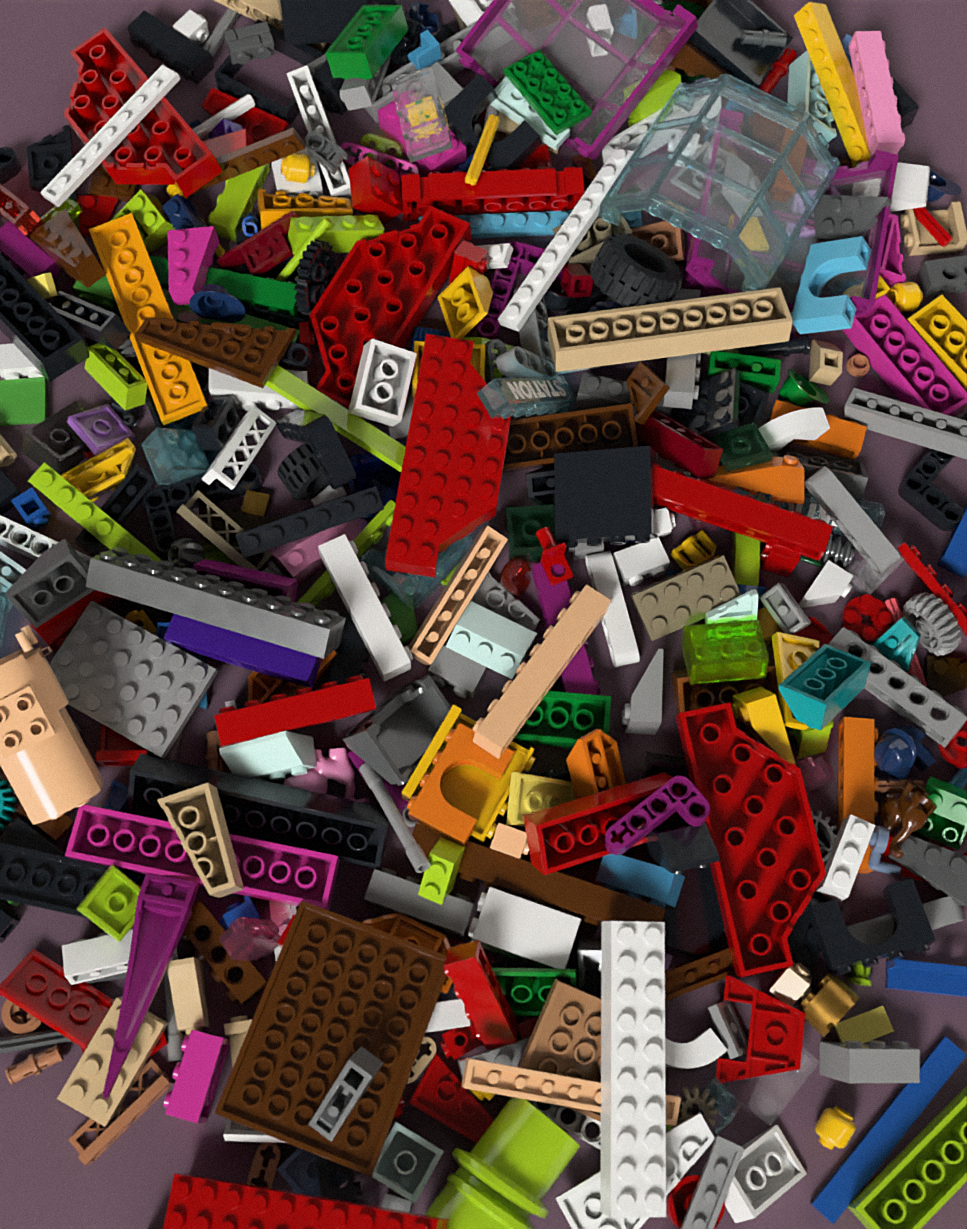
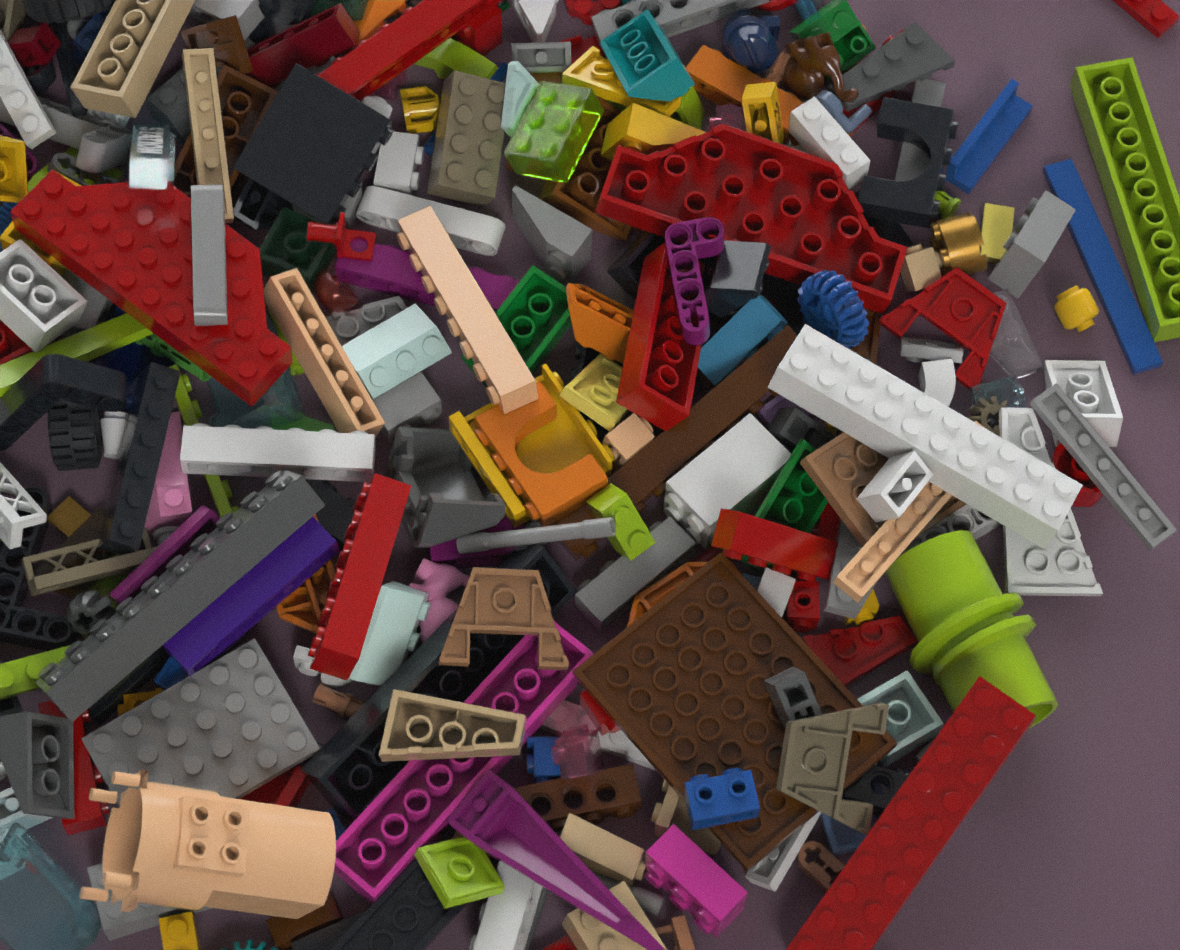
camera: 60 degrees left, 5 degrees down
(252, 1064) = (721, 798): none -> blue brick
(318, 1121) = (817, 758): none -> dark tan wing
(323, 825) = (504, 604): none -> medium nougat wing
(465, 474) = (209, 255): none -> light grey beam
(569, 424) = (206, 122): none -> tan plate
(574, 1065) = (895, 486): none -> white brick
(702, 937) = (833, 308): none -> blue gear
(835, 796) = (763, 111): none -> yellow brick

